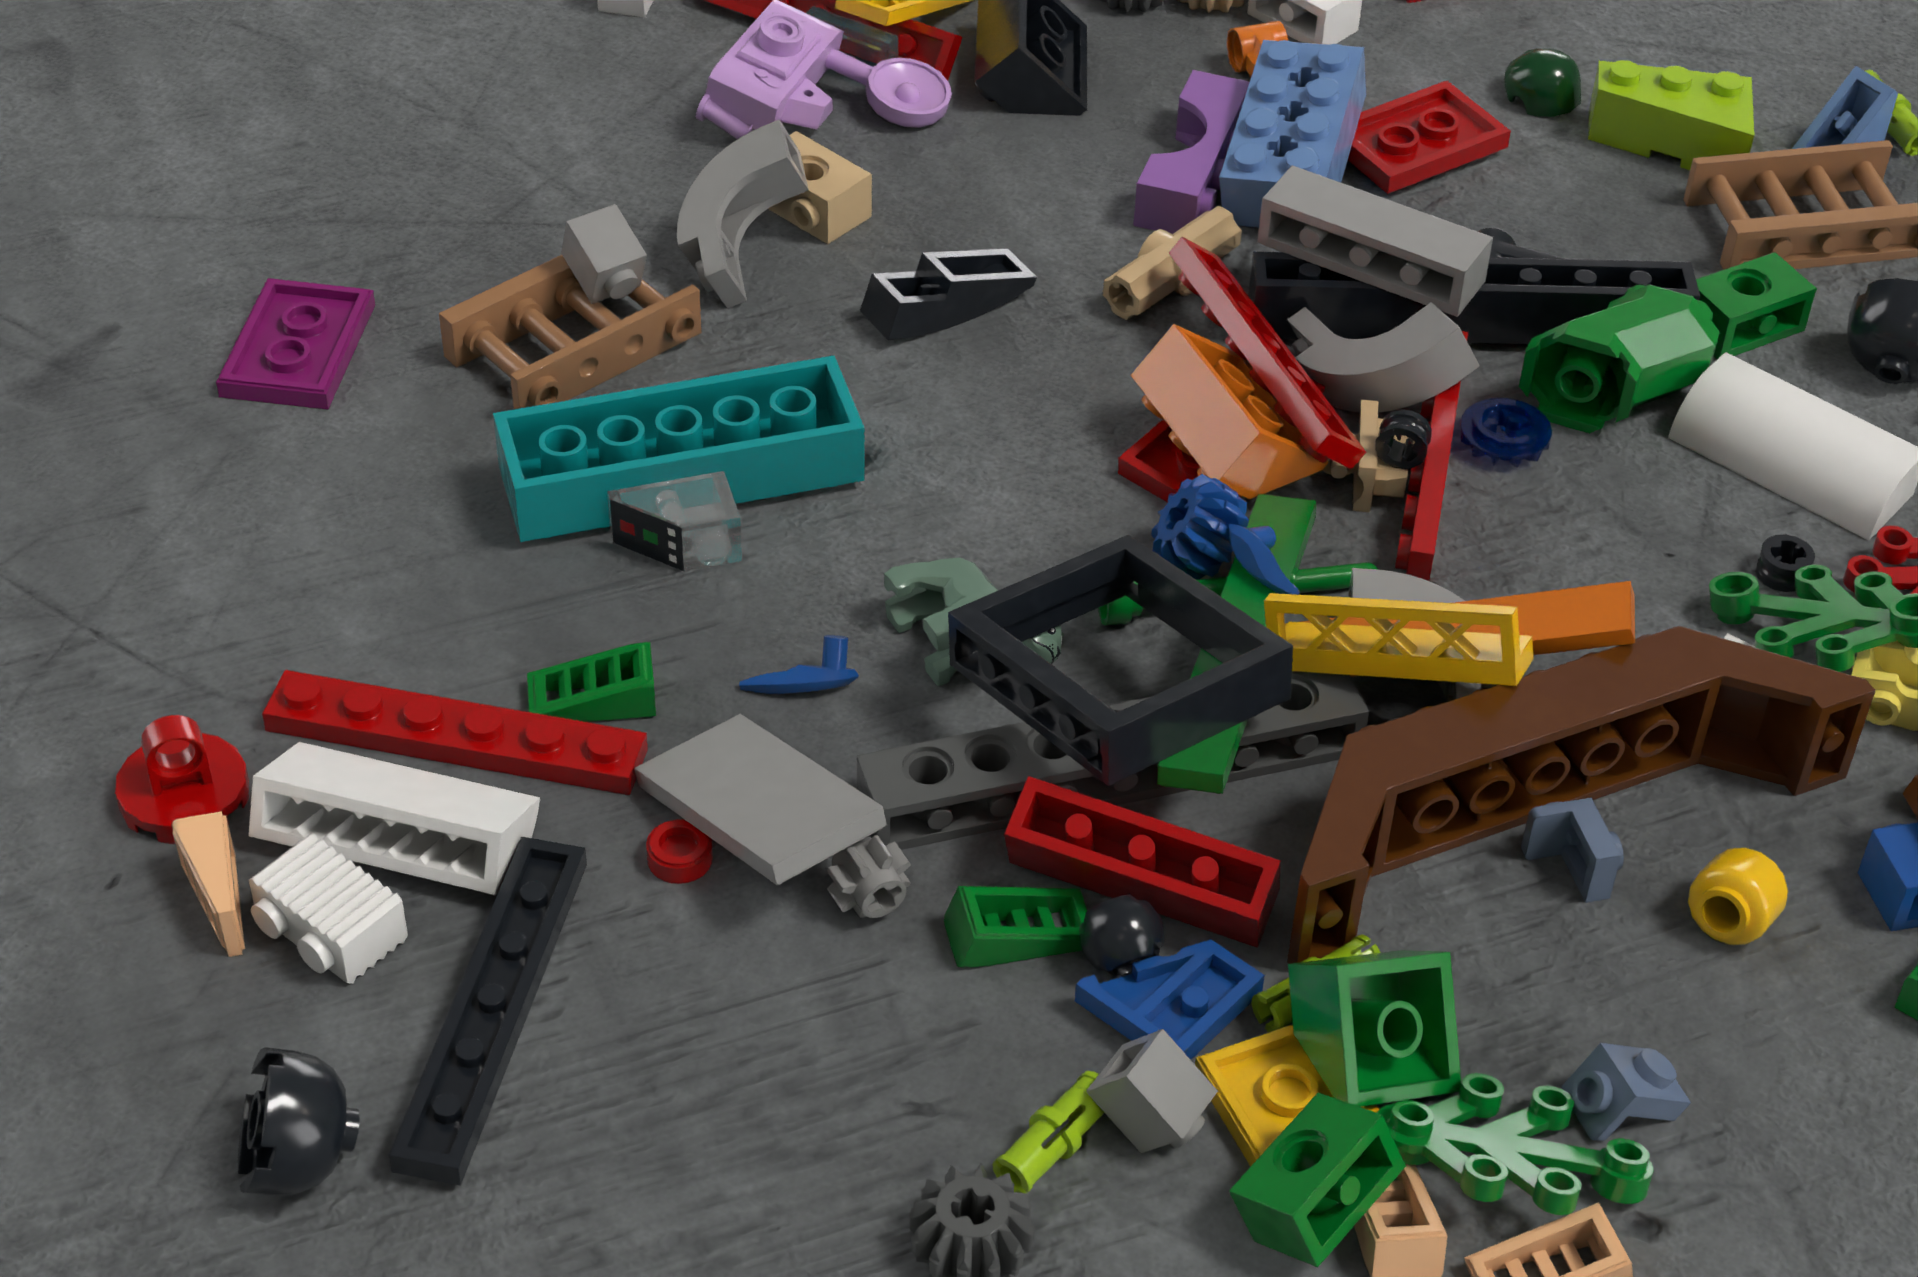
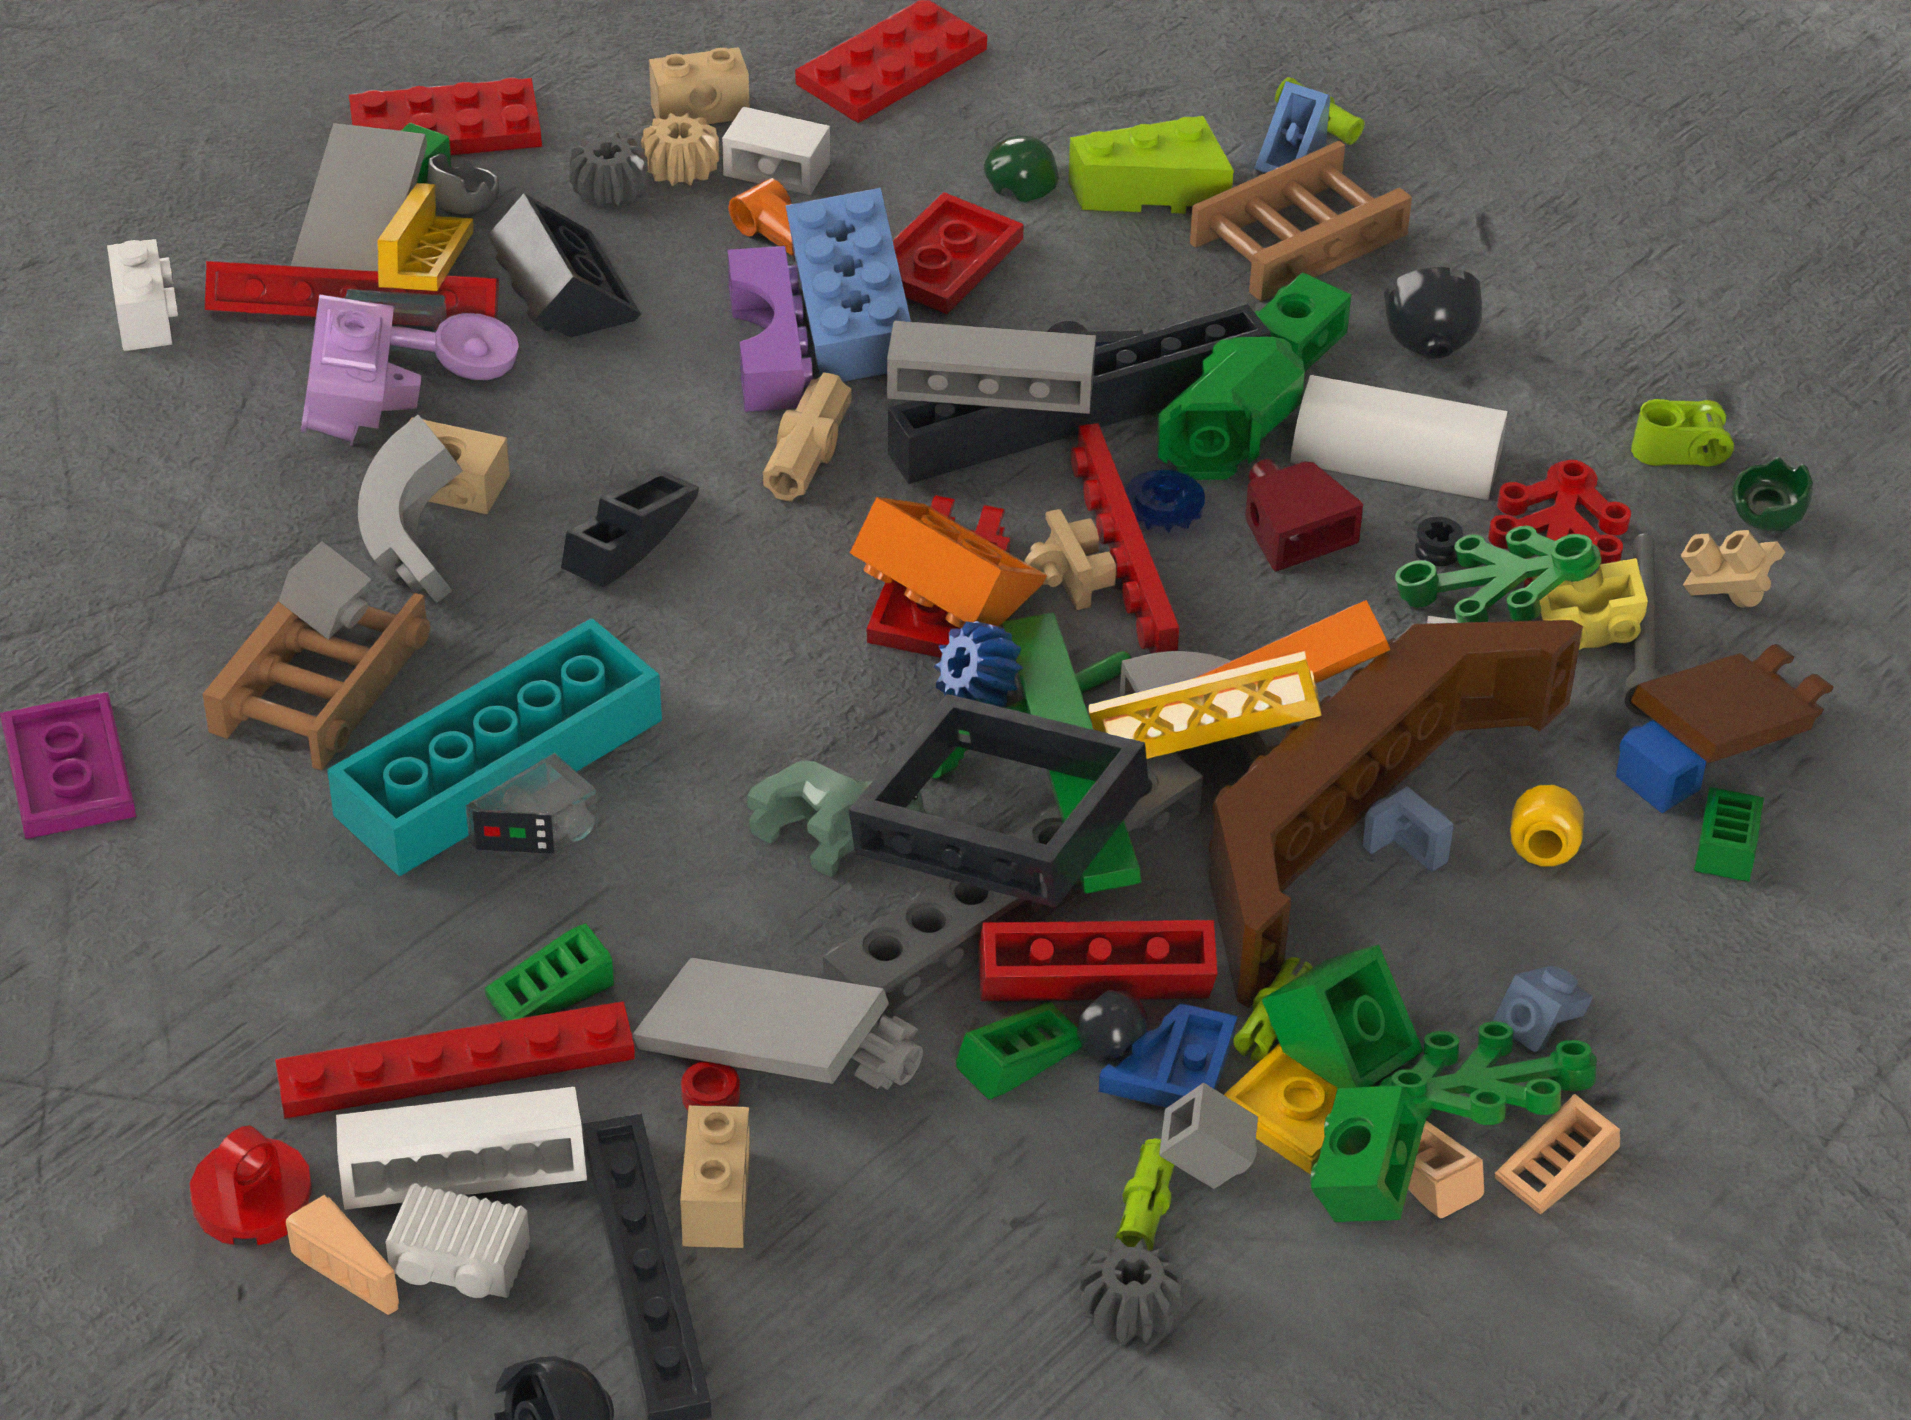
camera: 25 degrees left, 0 degrees up
(615, 938) = (715, 1176): none -> tan brick
(808, 677) = (723, 908): blue bar -> none
(1254, 554) = (1049, 679): blue bar -> none
(1272, 362) = (961, 505): red plate -> none
(1391, 368) = (1059, 476): light grey arch -> none
(1403, 454) = (1098, 525): black bush -> none
(1643, 487) = (1300, 513): none -> dark red torso

